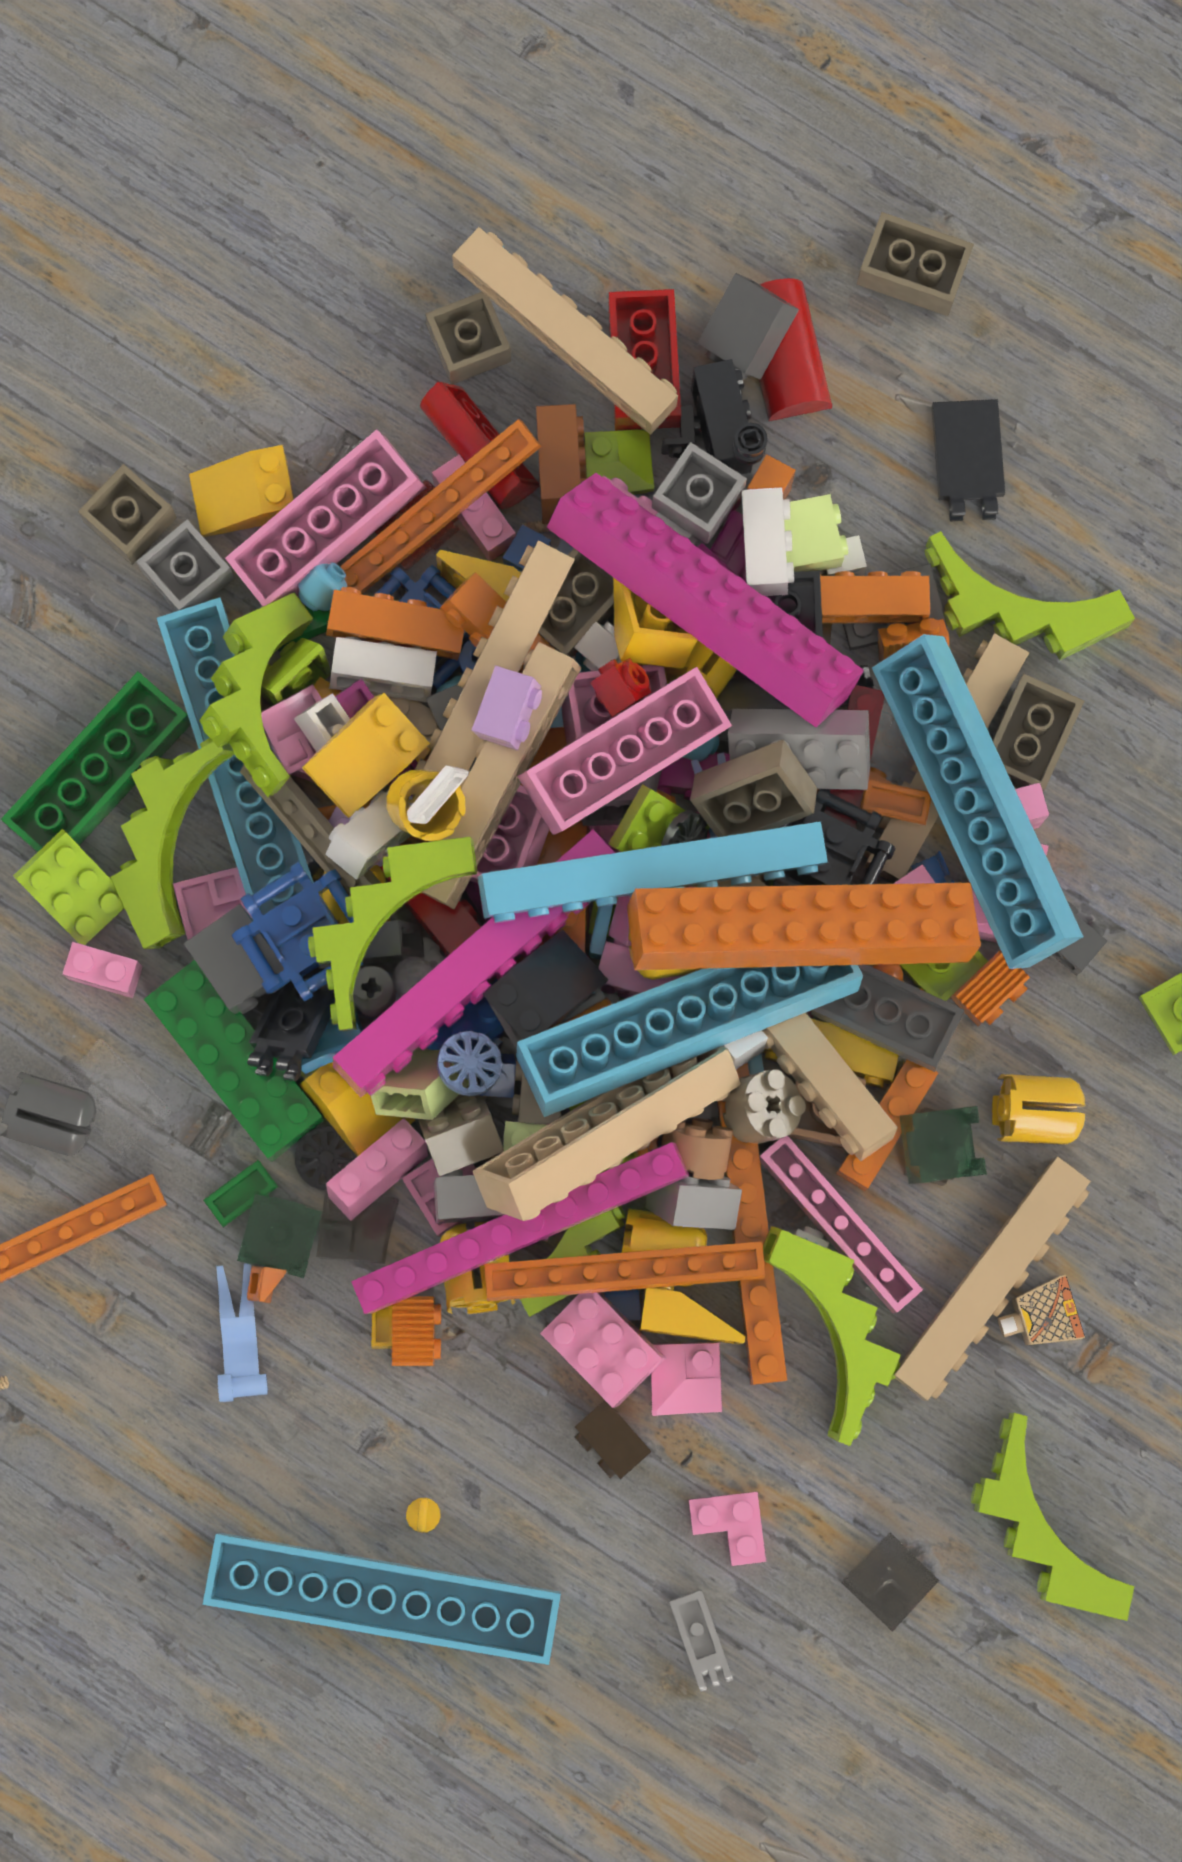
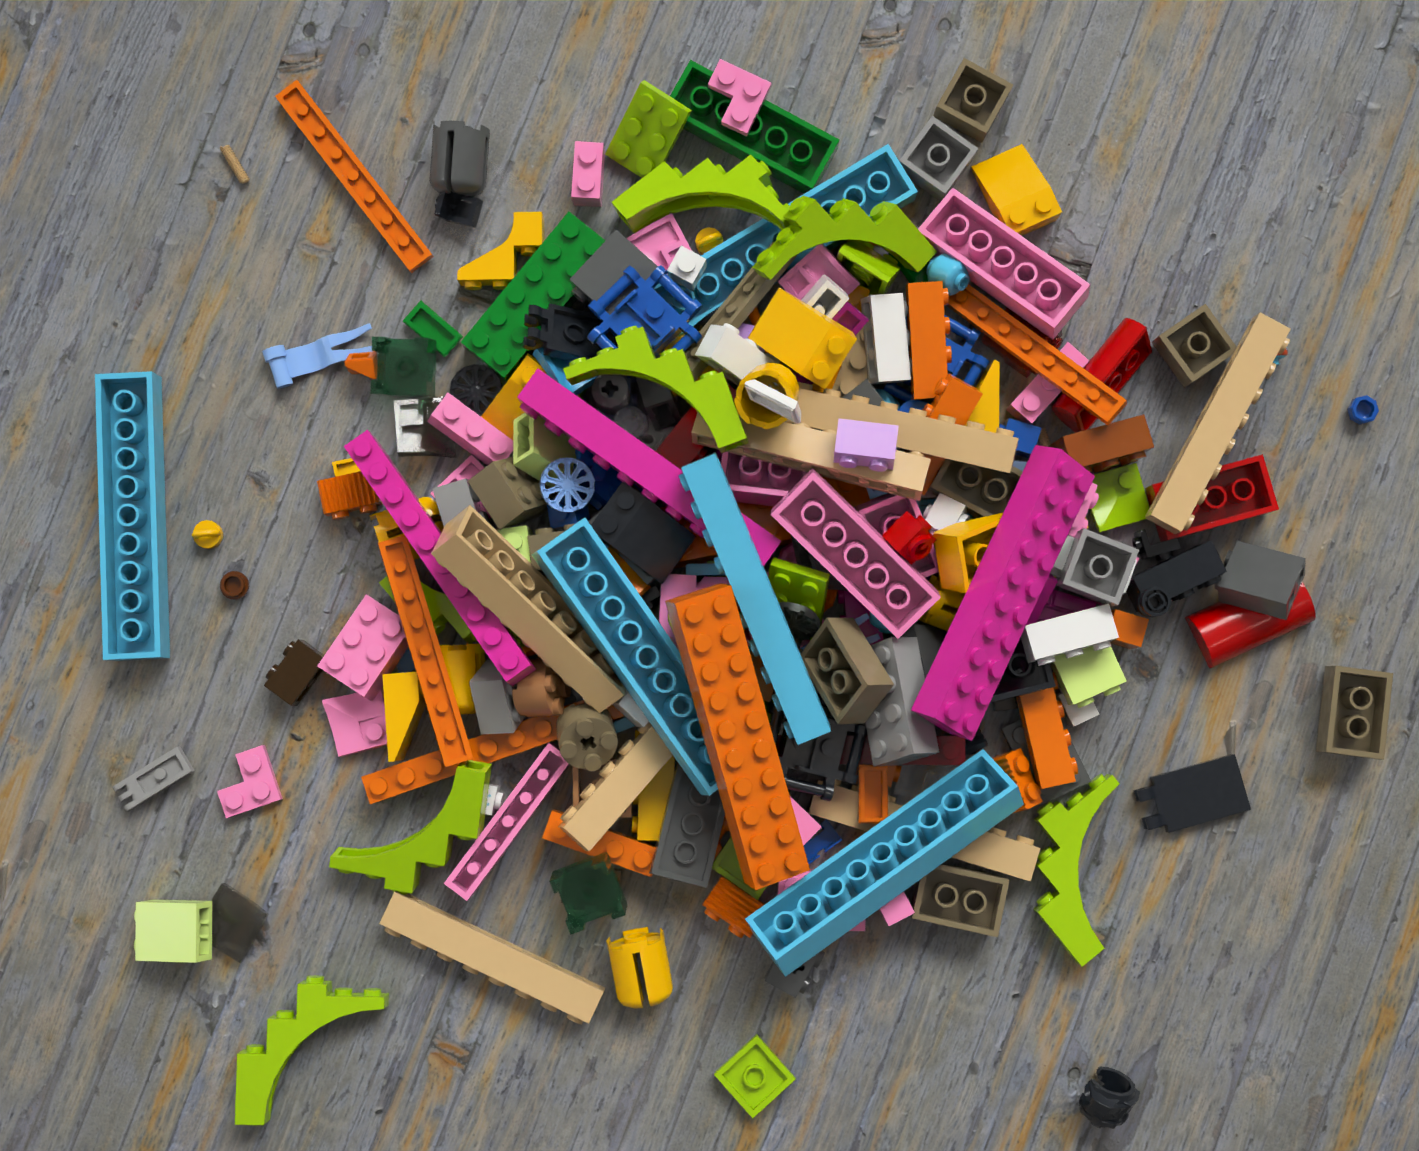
camera: 85 degrees right, 5 degrees up
(55, 763) = (746, 94): none -> bright pink plate
(106, 1130) = (458, 208): none -> black bracket
(185, 1096) = (500, 264): none -> yellow arch
(215, 850) = (708, 239): none -> yellow tile
(247, 872) = (687, 268): none -> white brick
(491, 1494) = (234, 585): none -> reddish brown plate
(581, 177) = (1363, 409): none -> blue tile
(886, 1649) = (173, 931): none -> yellowish green brick
(1044, 1314) = (472, 1006): torso -> none

